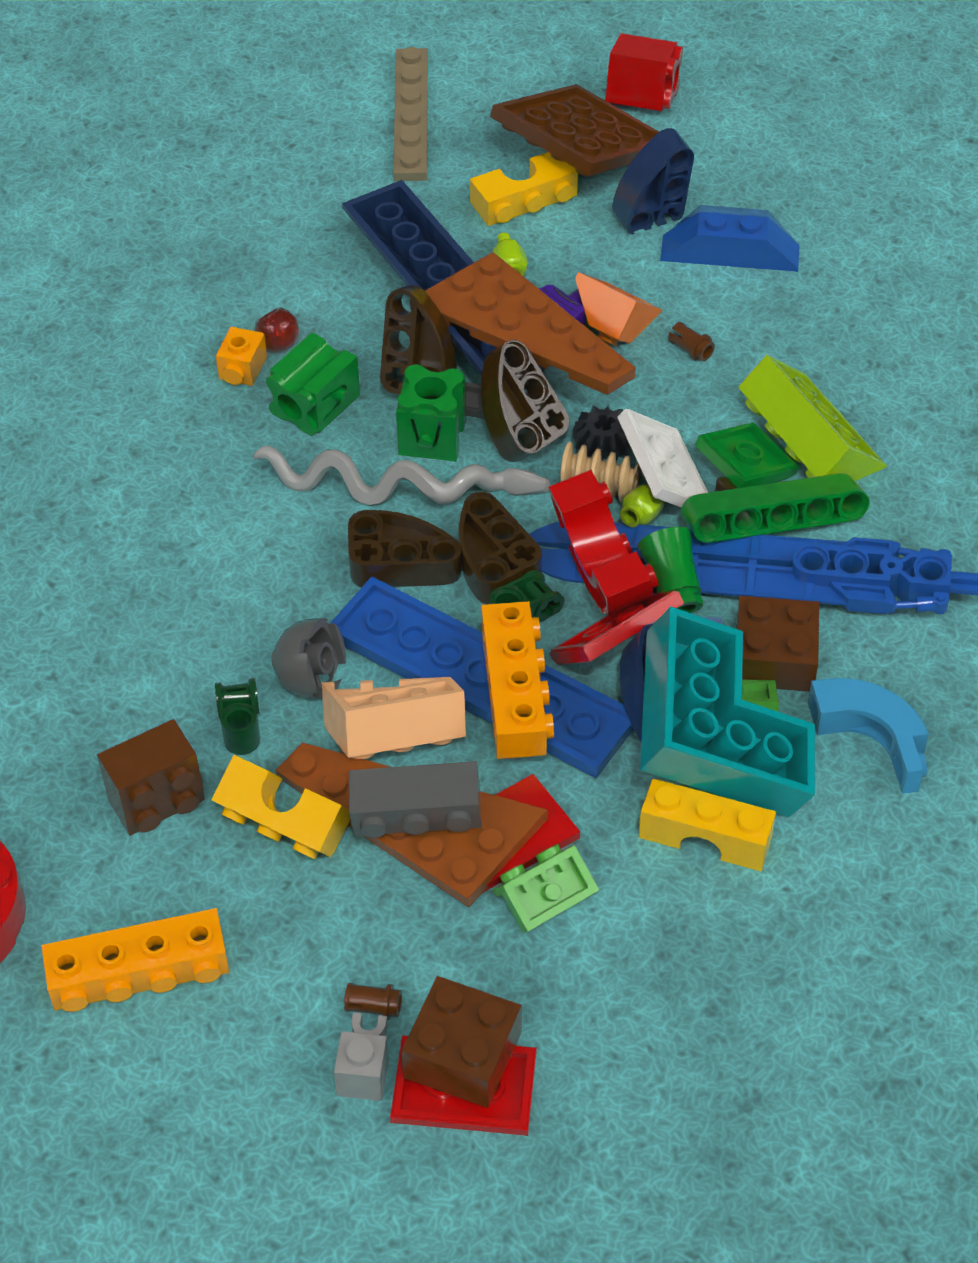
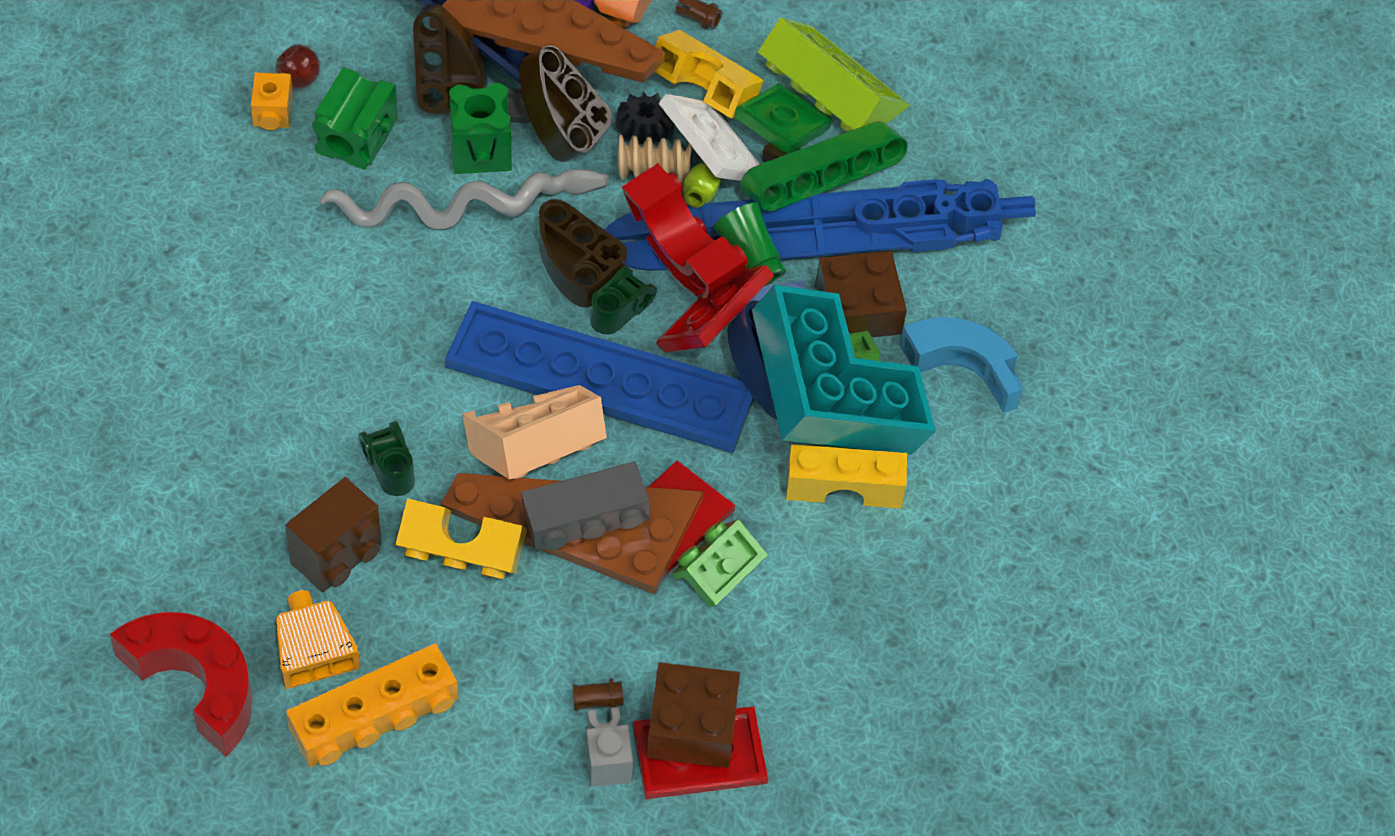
camera: 20 degrees left, 5 degrees up
(96, 882) = (313, 641): none -> light orange torso
(307, 651) = (437, 387): dark grey cylinder -> none
(401, 550) = (490, 270): dark brown beam -> none
(514, 680) = (639, 376): light orange brick -> none
(667, 385) = (696, 63): none -> yellow arch

